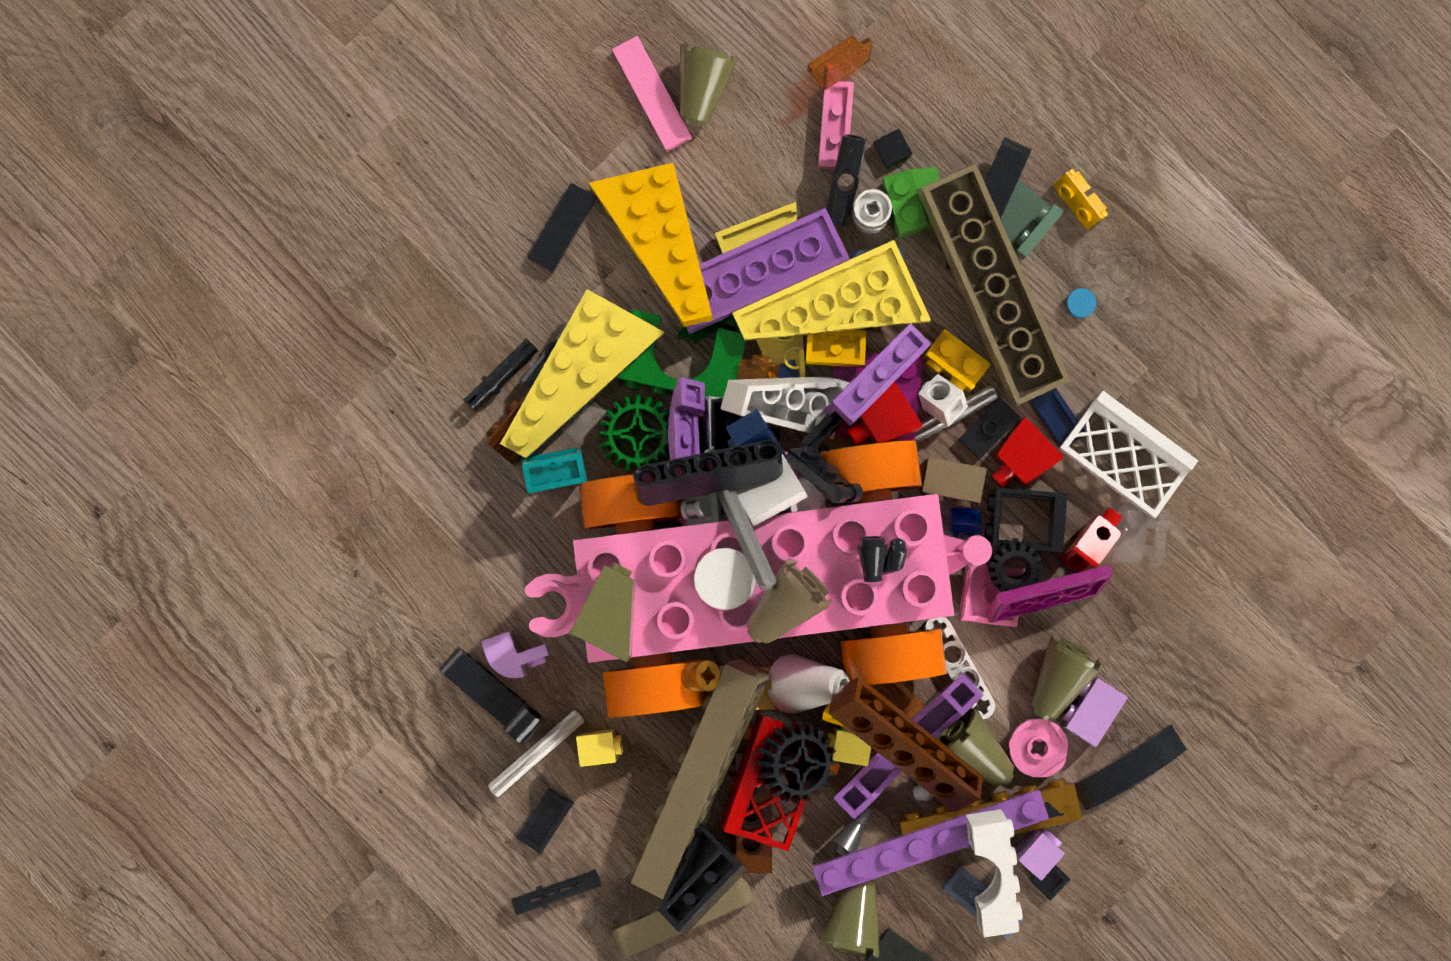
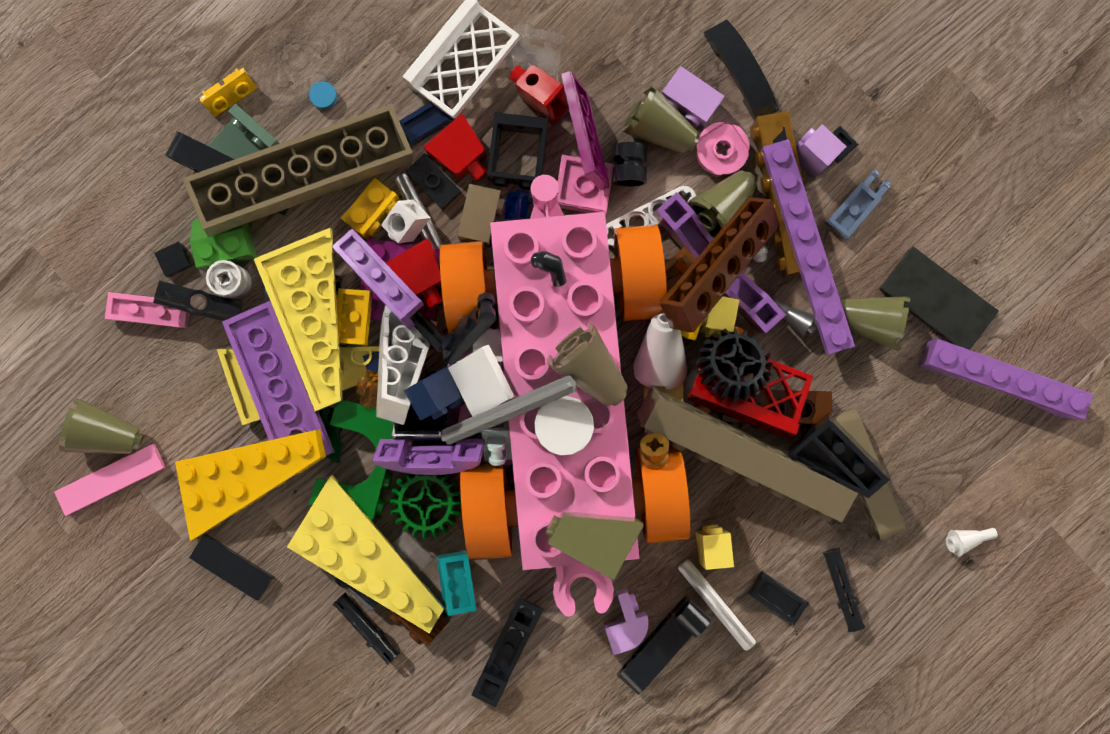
camera: 85 degrees left, 0 degrees up
(480, 527) = (507, 651): none -> black slope
(708, 472) = (462, 438): black beam -> none
(840, 61) = (87, 303): clear orange panel -> none
(872, 557) = (548, 284): black cone -> none
(996, 906) = (865, 187): white arch -> none
(1007, 551) = (563, 145): black tyre -> none
(1016, 644) = (629, 161): none -> black wheel

